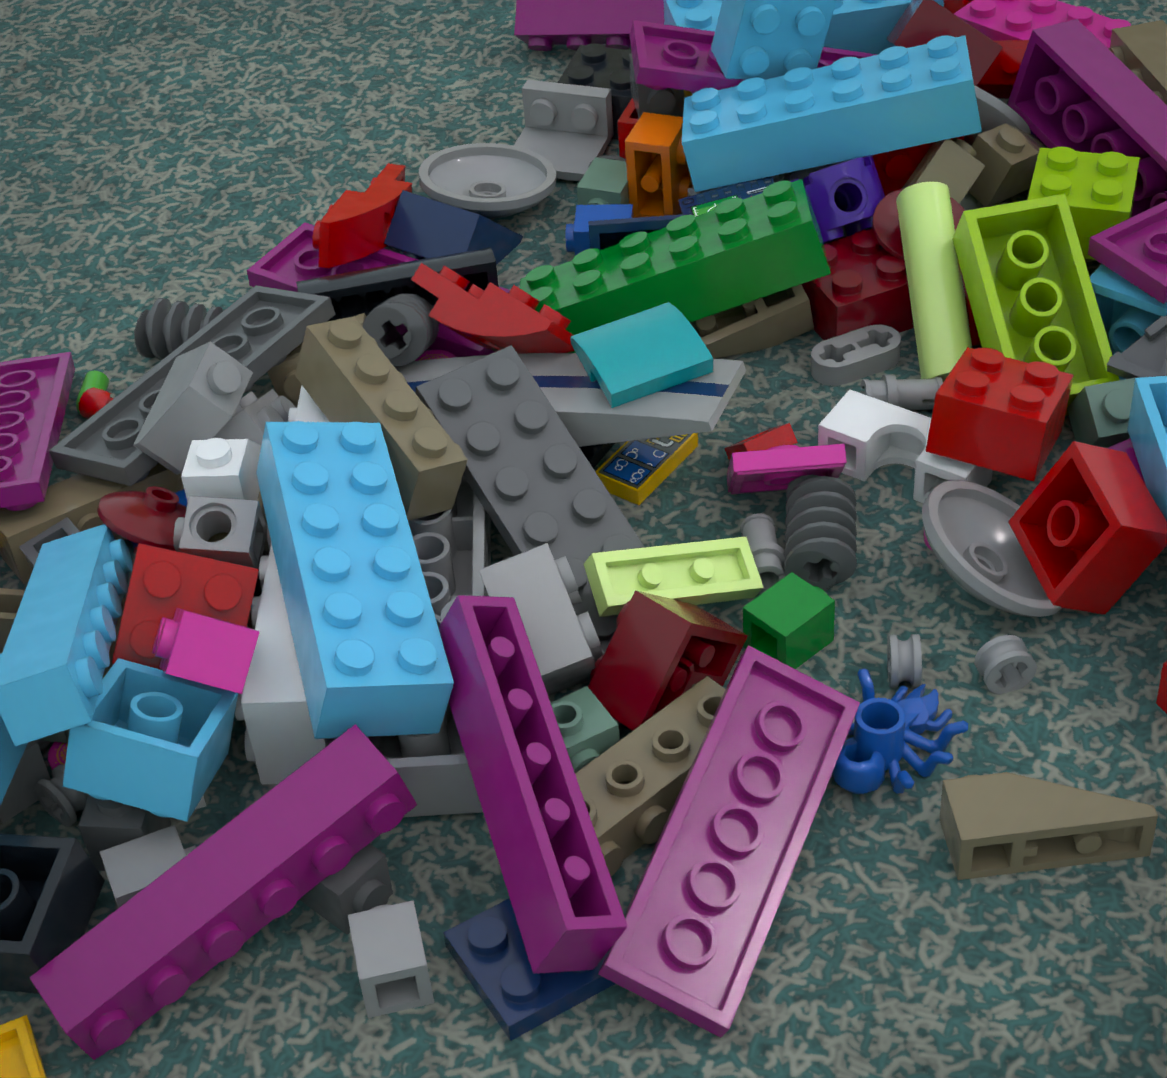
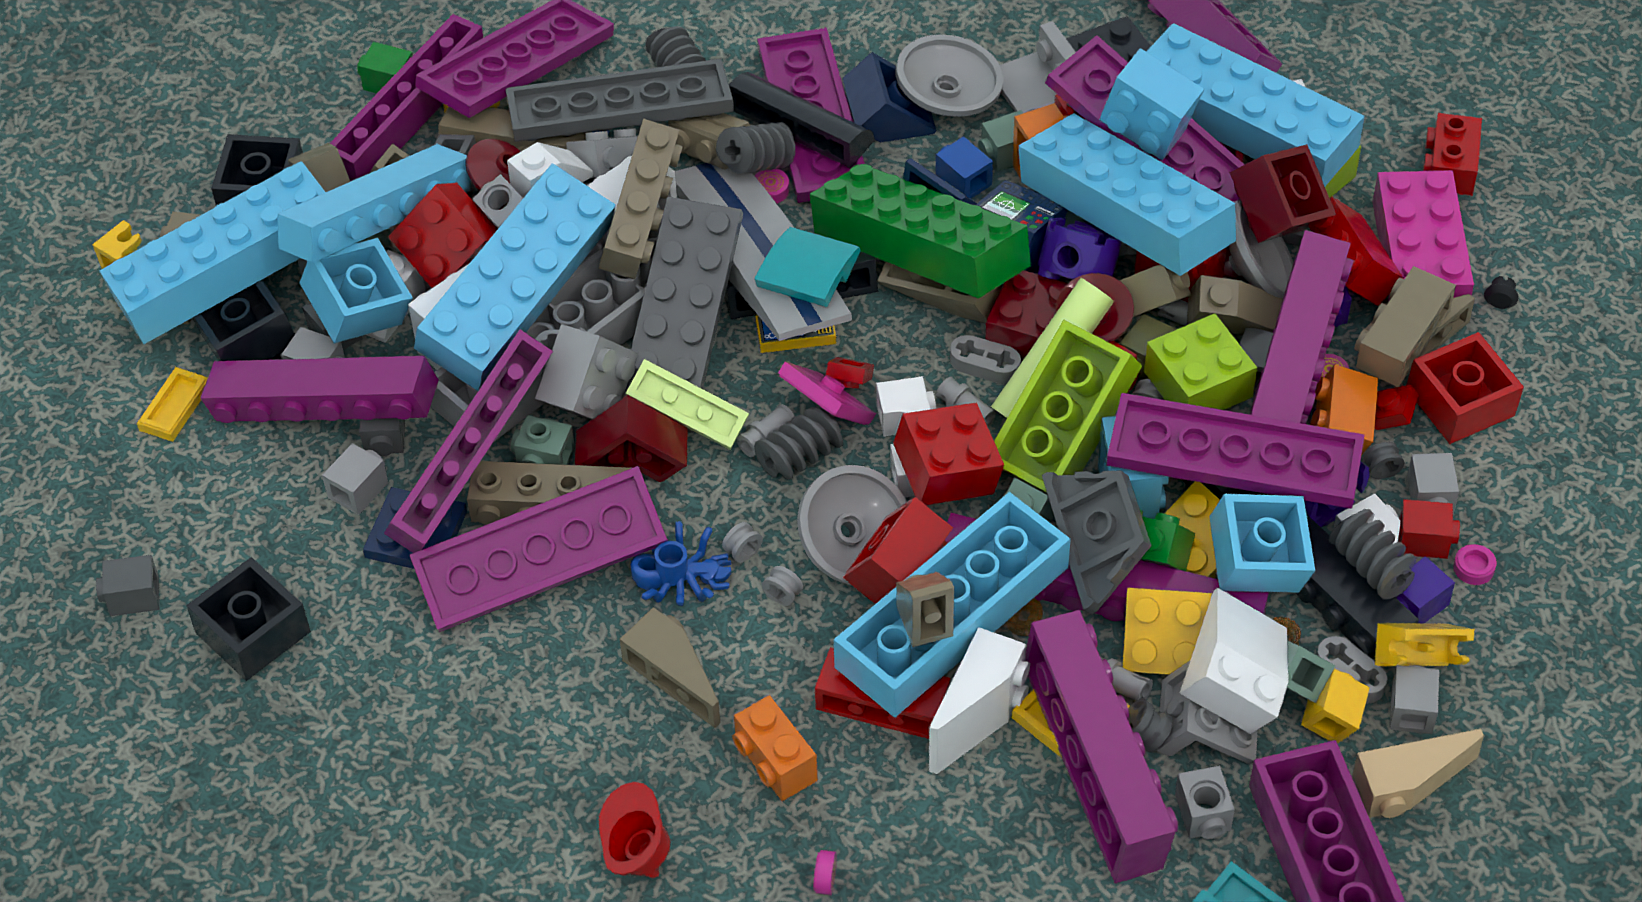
camera: 45 degrees right, 10 degrees up
(93, 394) = (598, 61): arm -> none
(192, 404) = (572, 119): light grey slope -> none
(205, 649) = (411, 264): dark pink brick -> none
(359, 220) = (837, 52): red slope -> none
(494, 316) = (790, 174): red slope -> none
(790, 621) = (720, 476): green brick -> none

